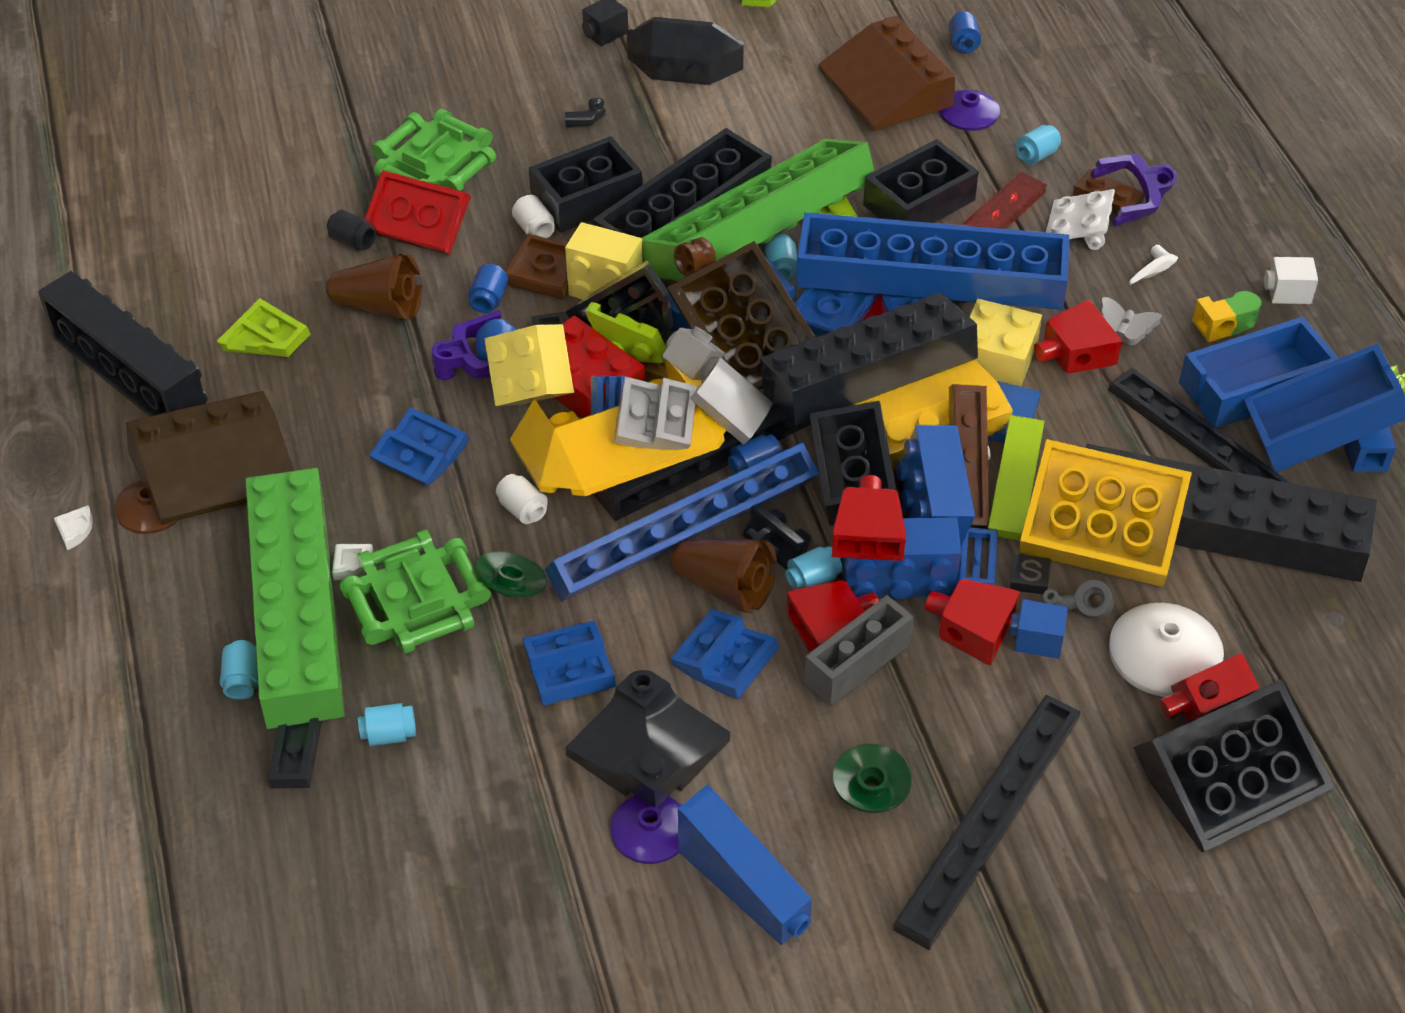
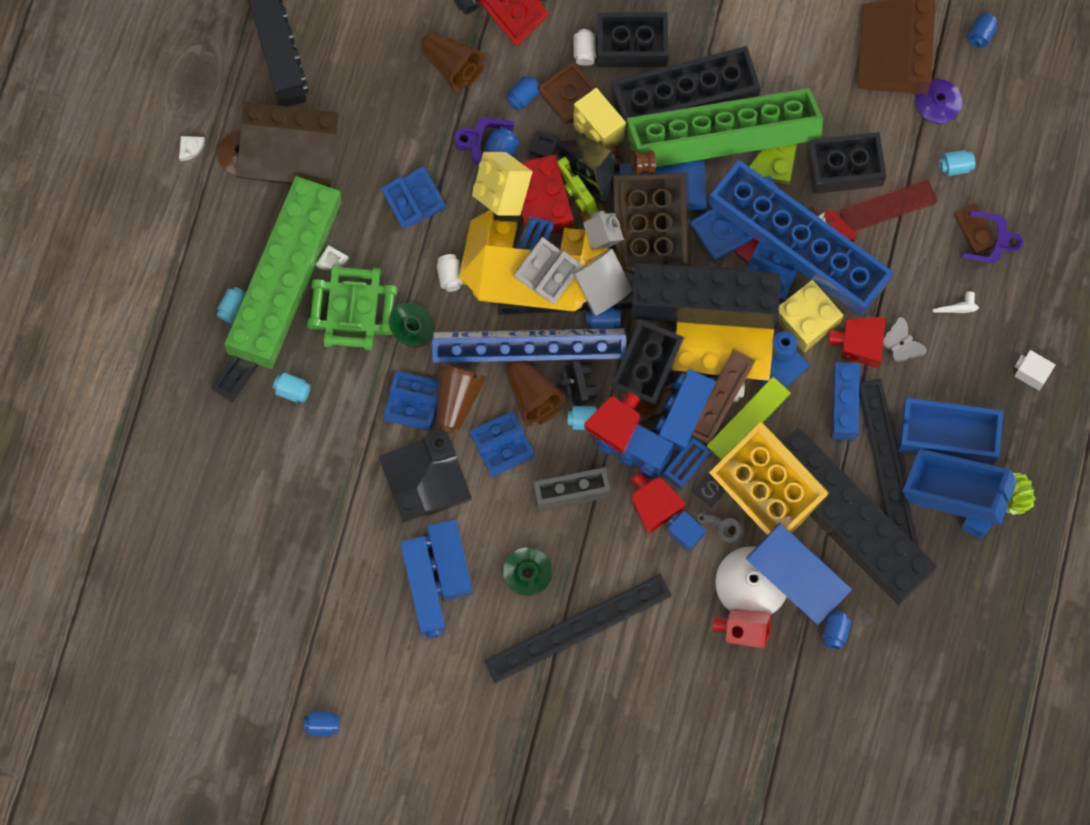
camera: 30 degrees right, 25 degrees up
(264, 332) = (369, 54): lime wing -> none
(625, 616) = (455, 396): none -> reddish brown cone
(646, 841) = (386, 538): dark purple dish -> none
(765, 816) = (448, 560): none -> blue brick
(783, 255) = (719, 169): medium azure brick -> none
(824, 610) = (573, 455): red torso -> none
(1003, 369) = (782, 352): none -> blue brick
(1083, 217) = (937, 241): white hinge -> none
(1114, 403) = (845, 401): none -> blue brick
(1221, 596) = (798, 573): none -> tile
(1226, 316) = (971, 375): leg -> none
(1235, 766) = (729, 679): black slope -> none
(1316, 642) = (836, 630): none -> blue brick

